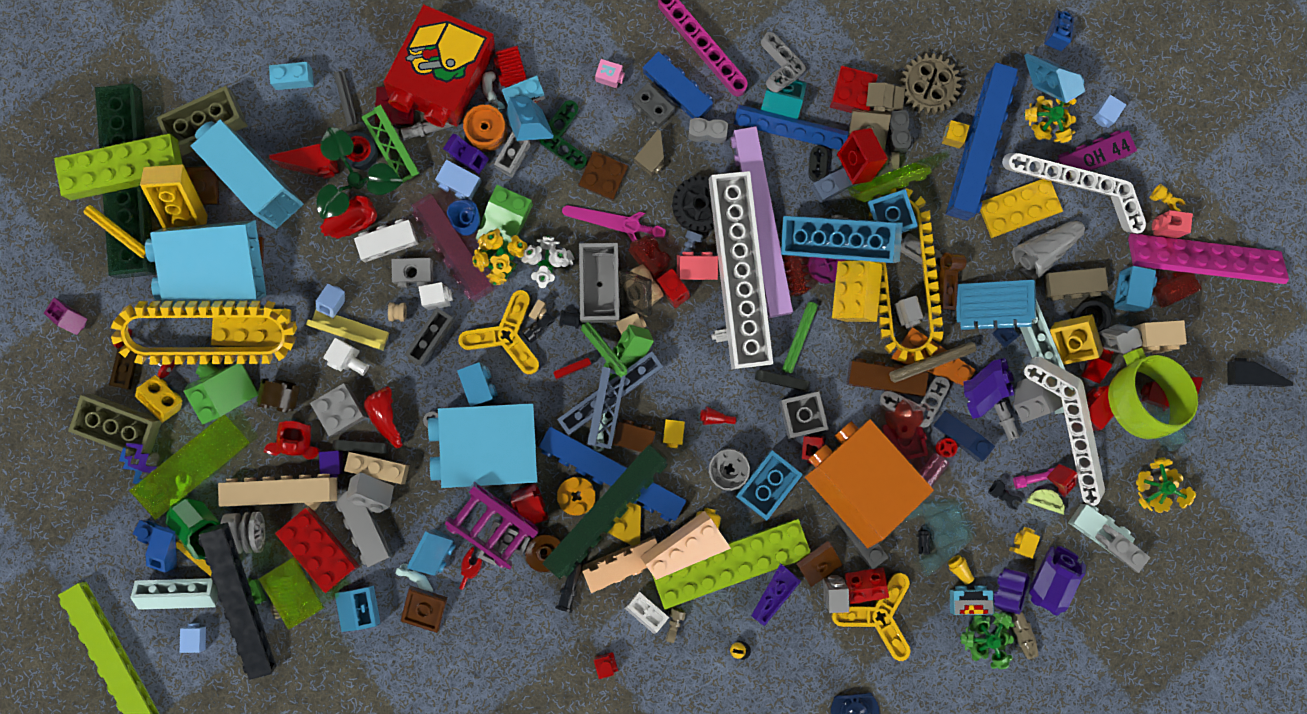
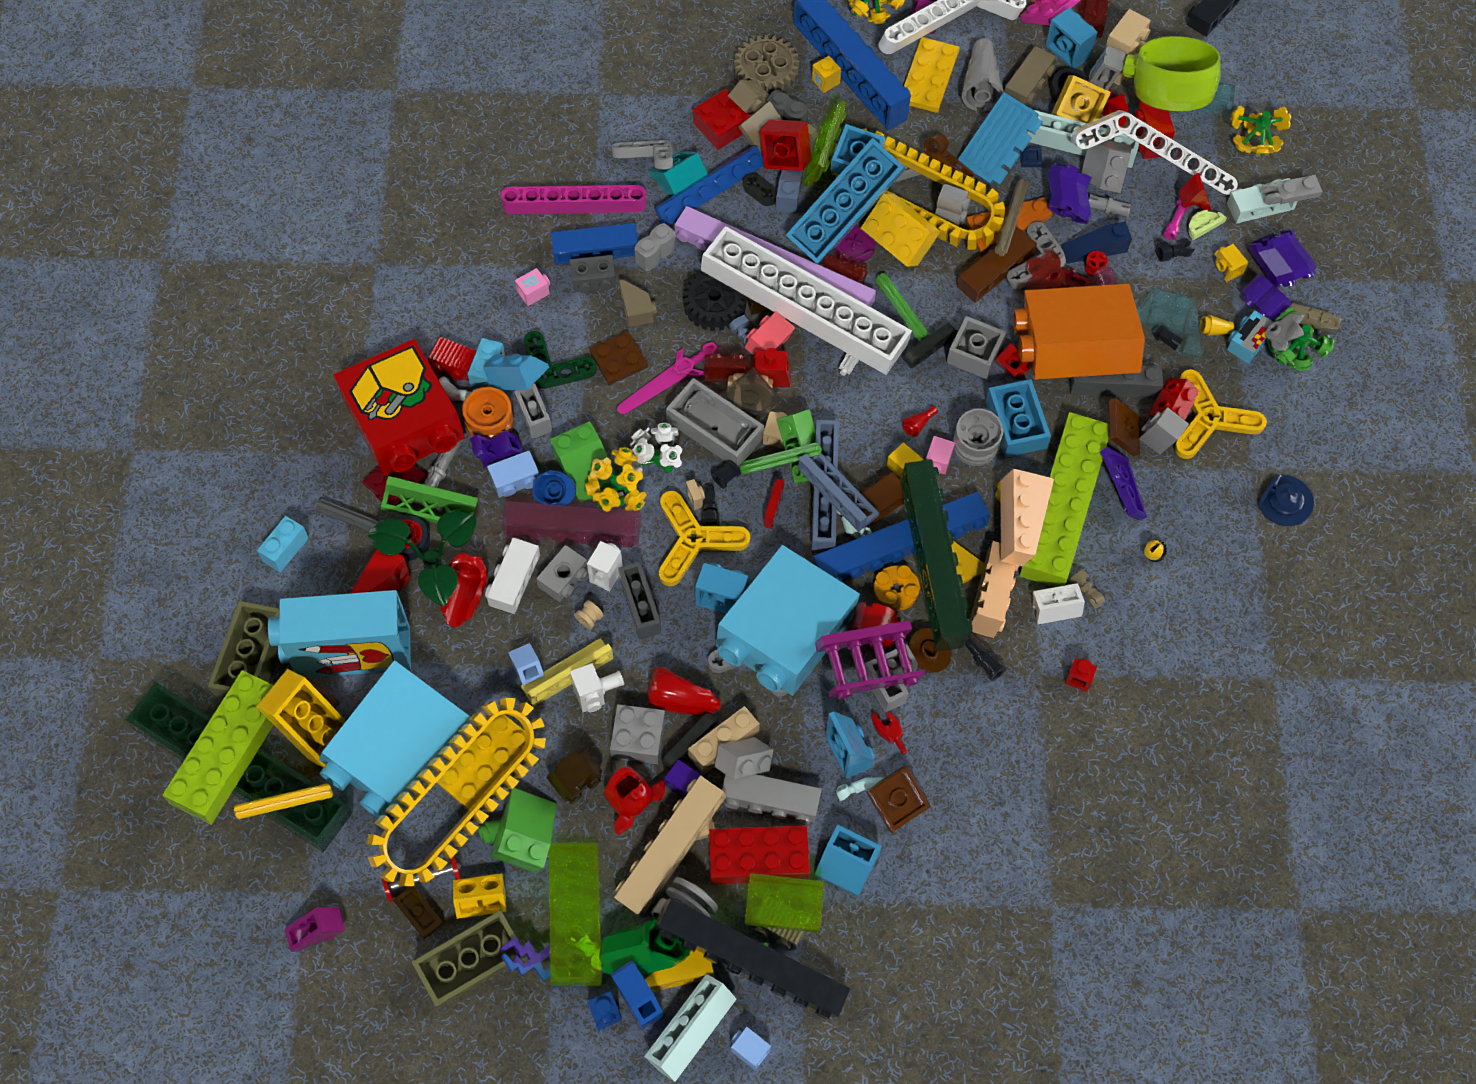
camera: 50 degrees left, 20 degrees down
(697, 452) = (941, 453): none -> bright pink brick
(986, 629) = (1285, 330): none -> light grey plate

